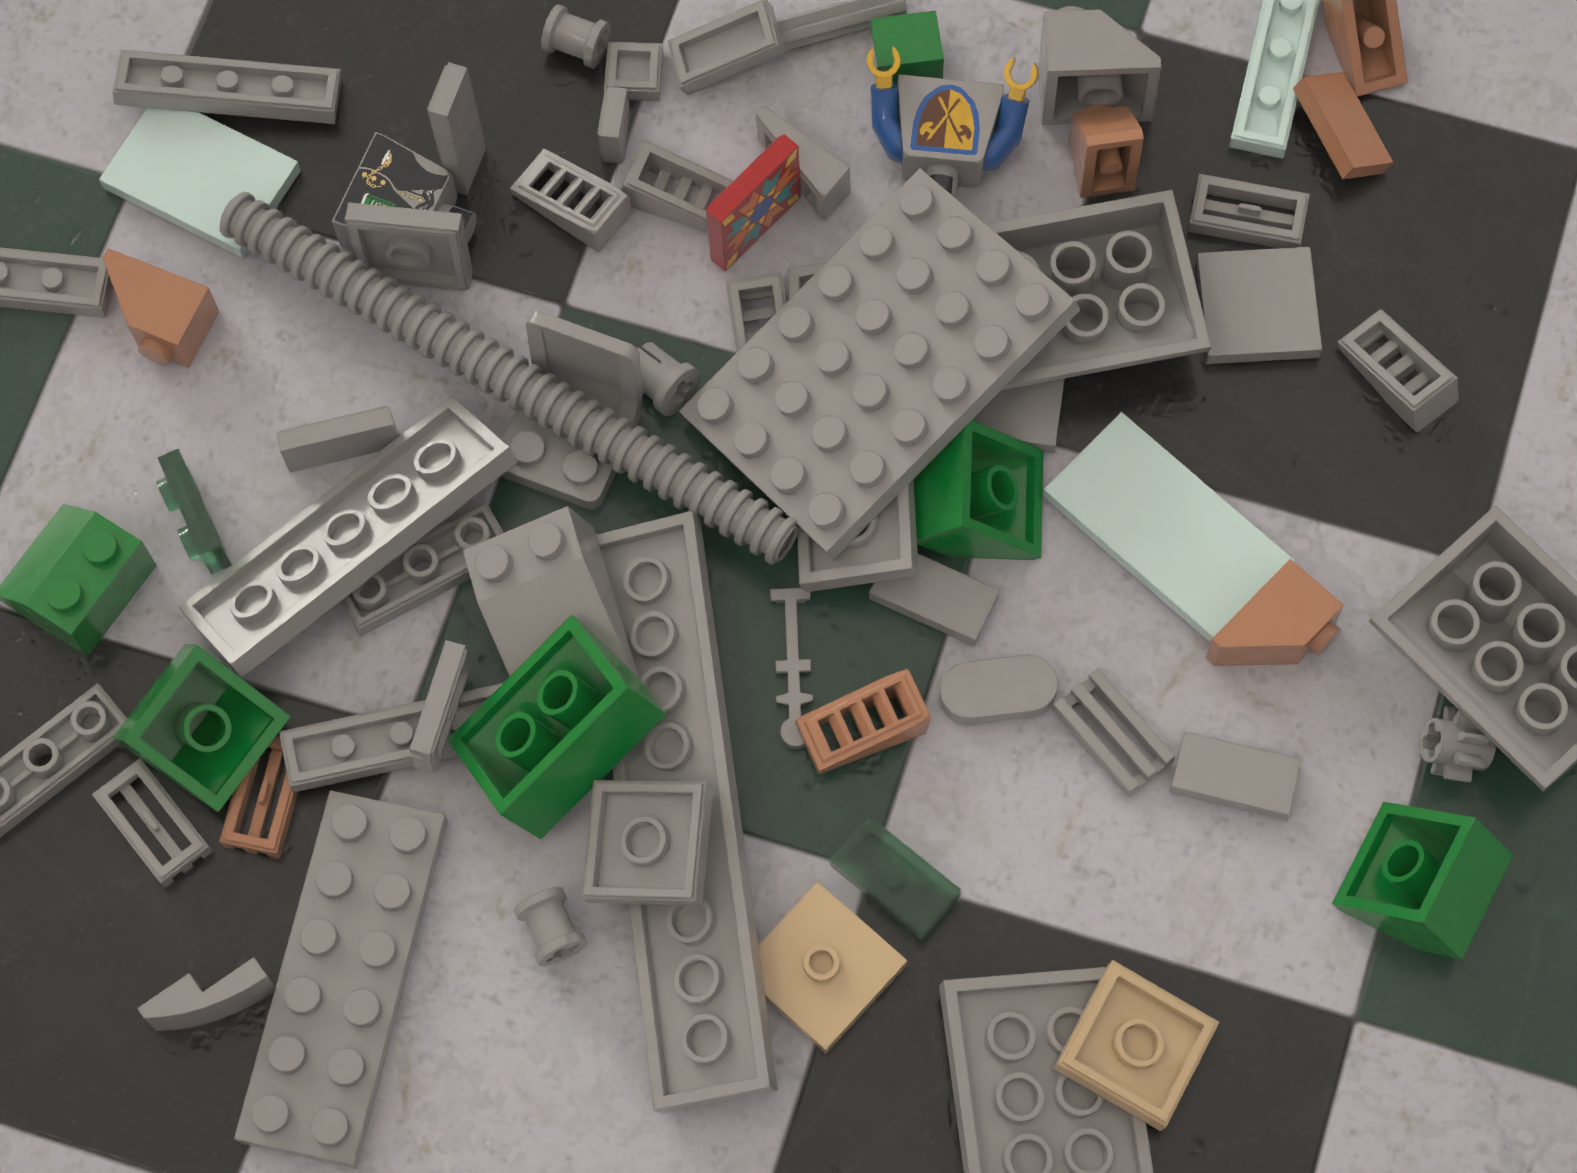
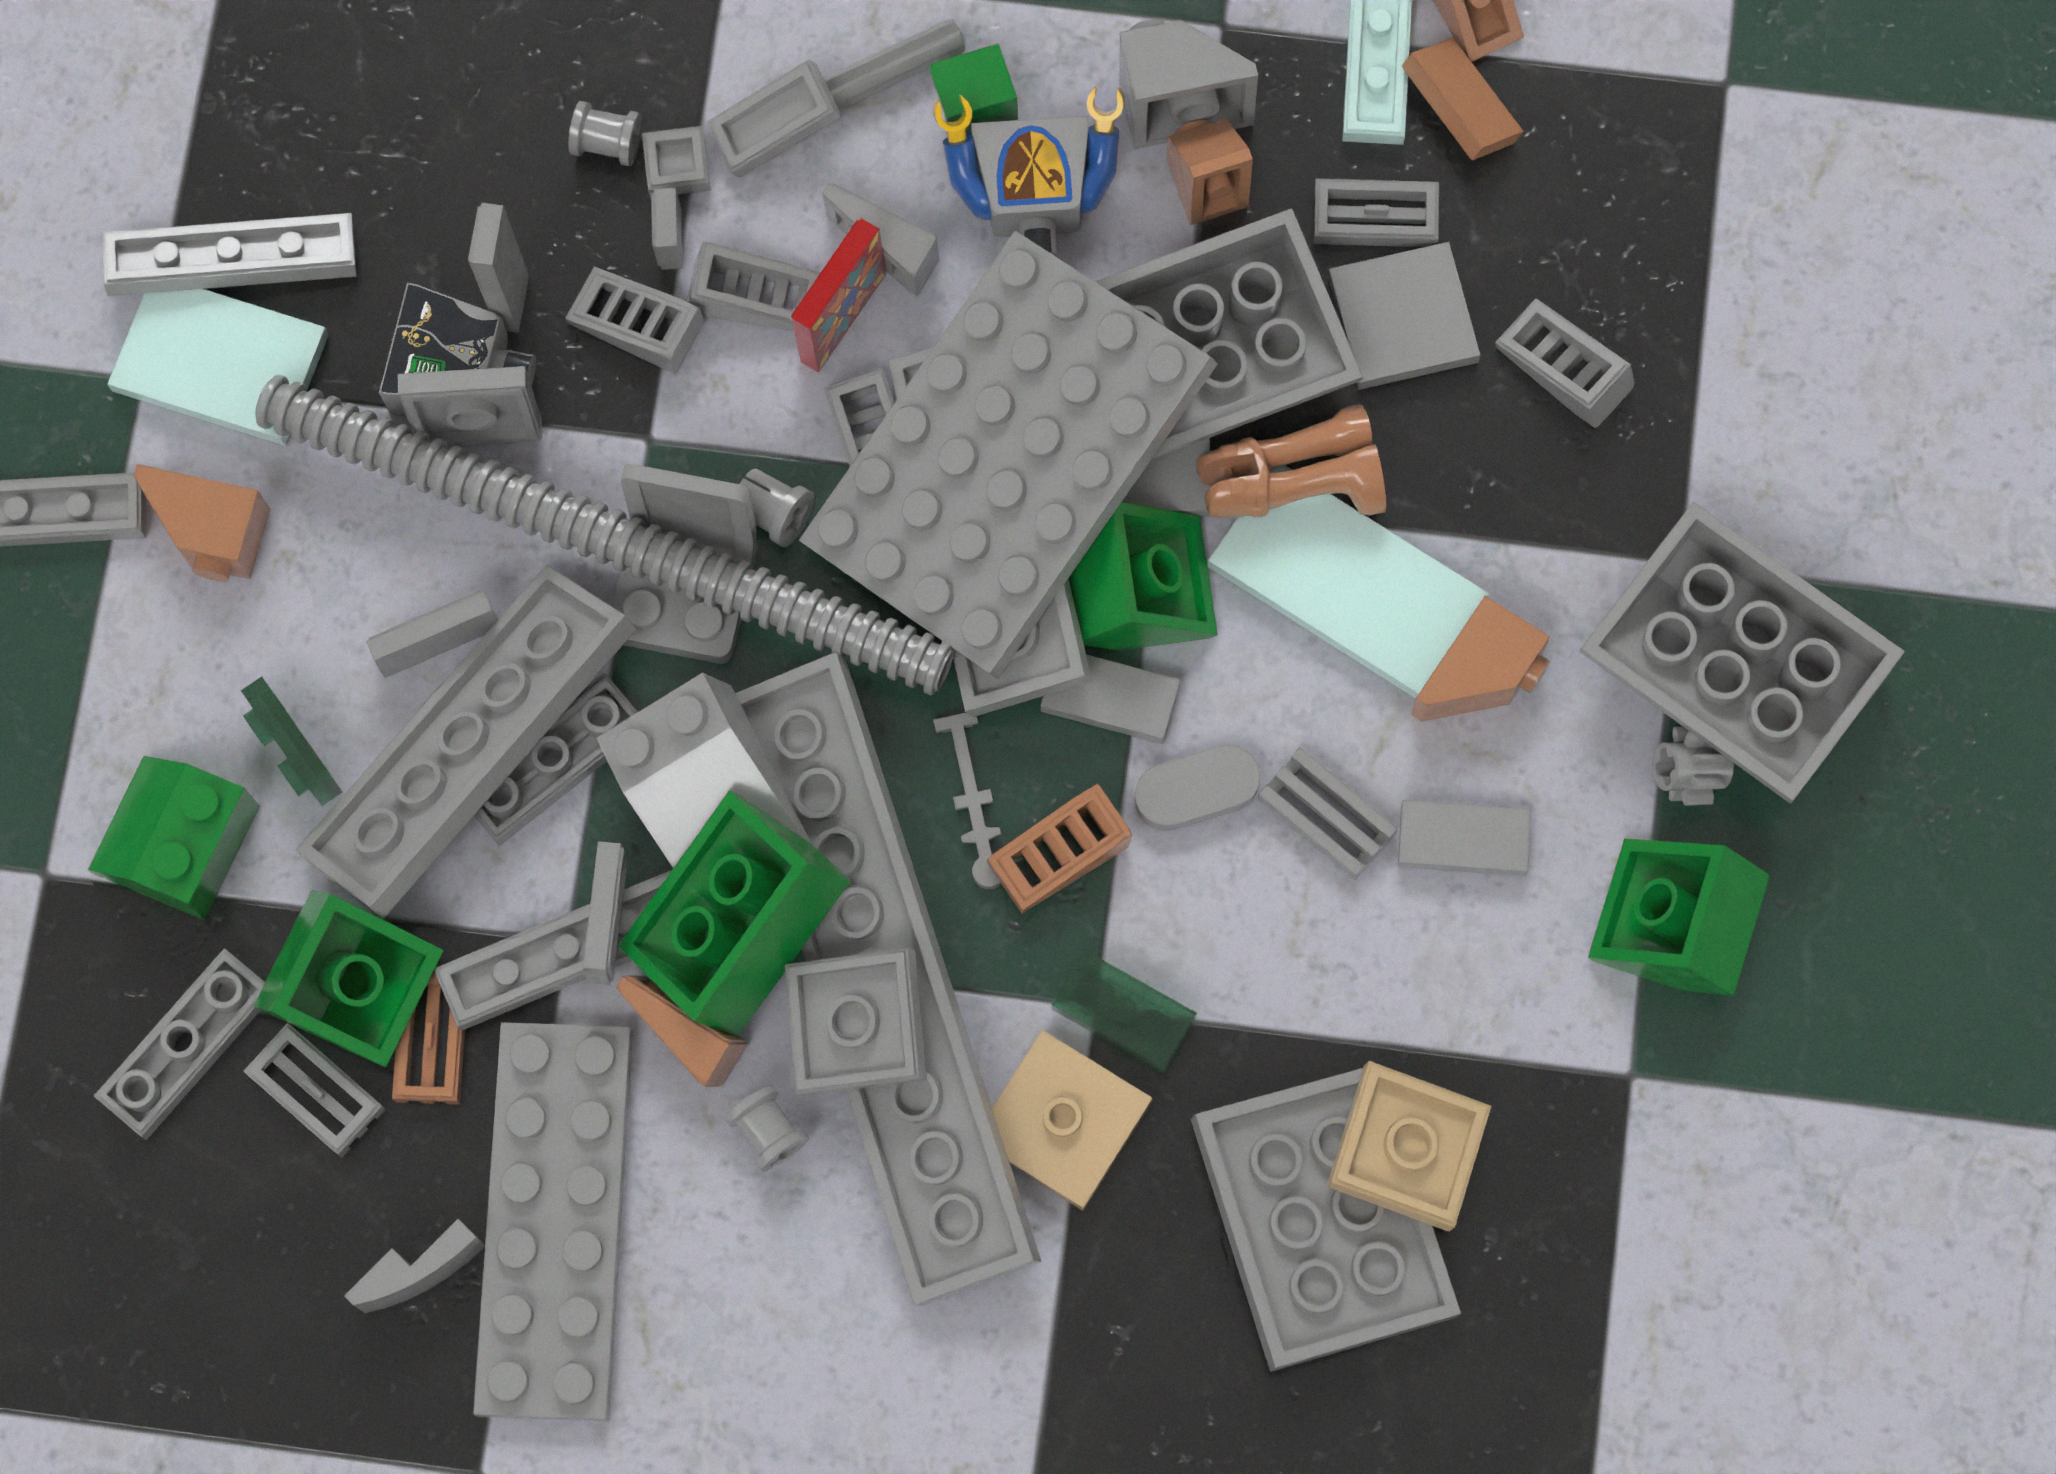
camera: 10 degrees left, 5 degrees up
(505, 844) = (700, 1048): none -> nougat slope
(1087, 424) = (1245, 486): none -> nougat piece

